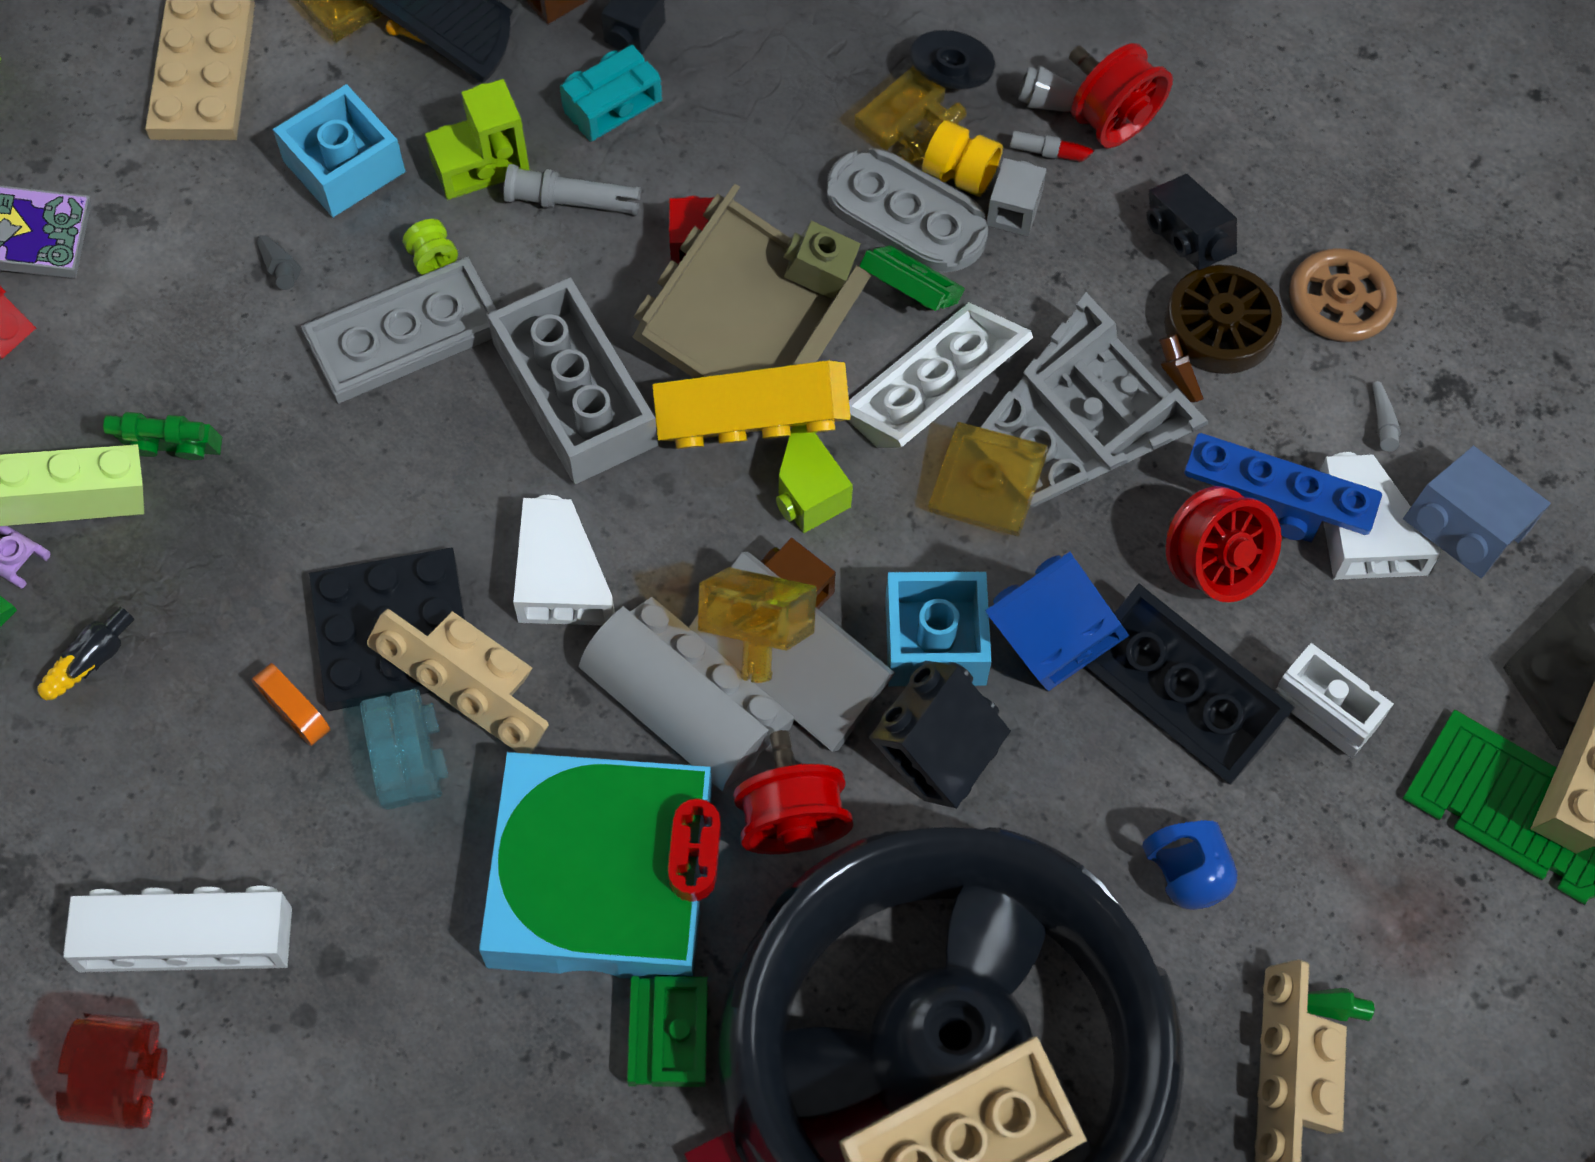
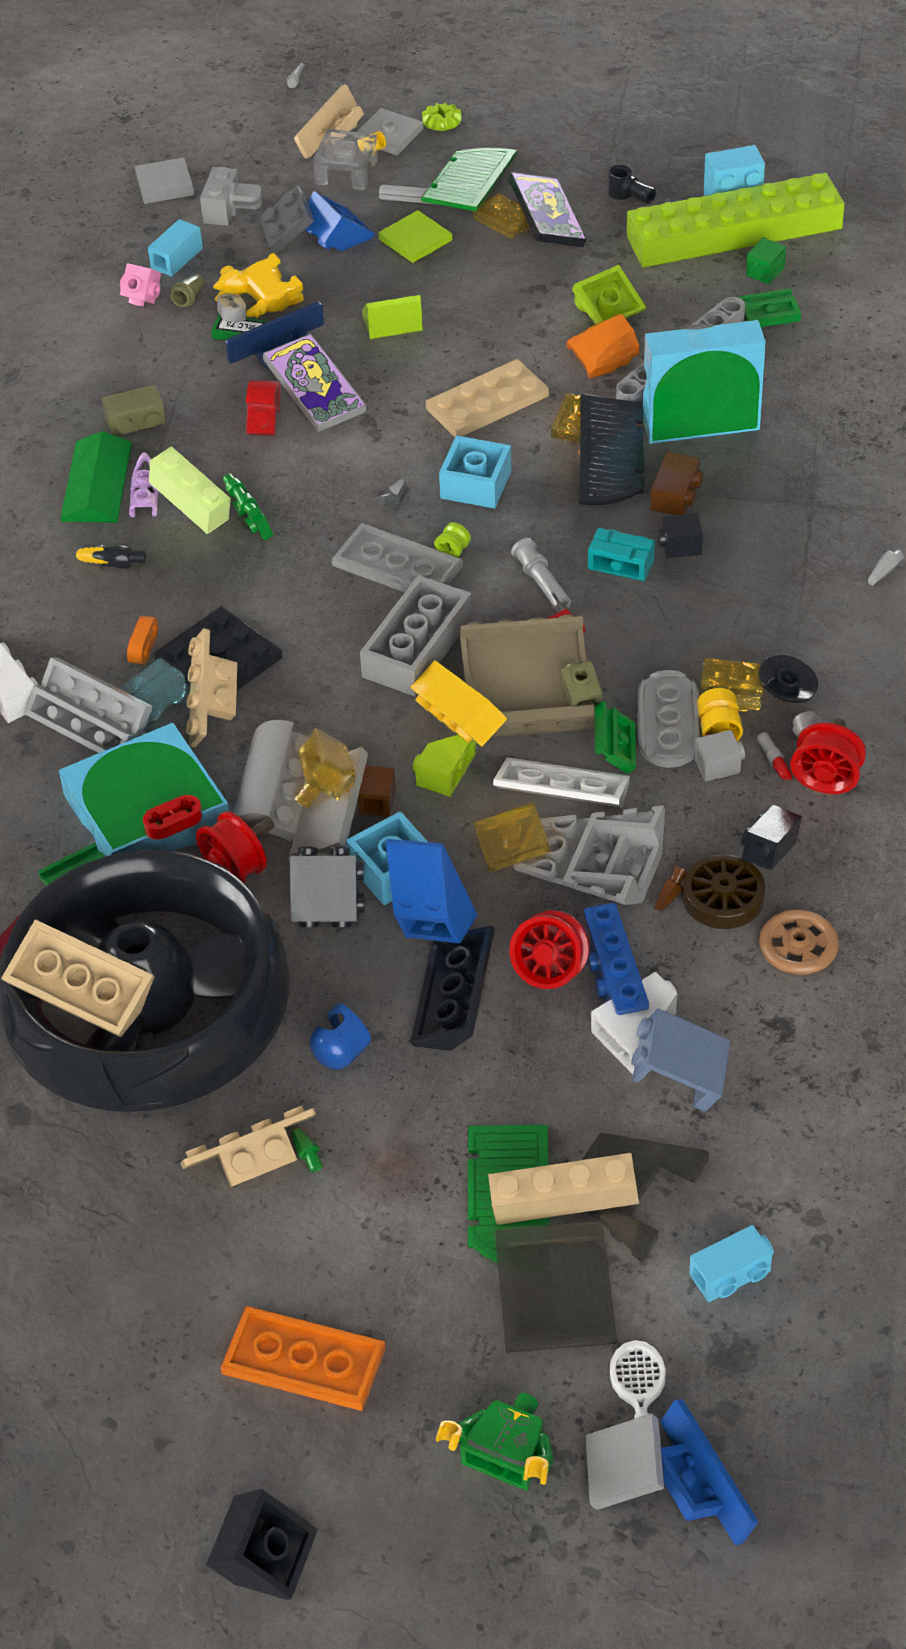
camera: 60 degrees right, 15 degrees down
(379, 848) = (86, 707): none -> light grey brick
(480, 148) = (534, 517): lime brick -> none
(557, 568) = (304, 691): white slope -> none
(1333, 700) = (493, 1052): white brick -> none
(1387, 422) = (723, 1005): light grey helmet -> none

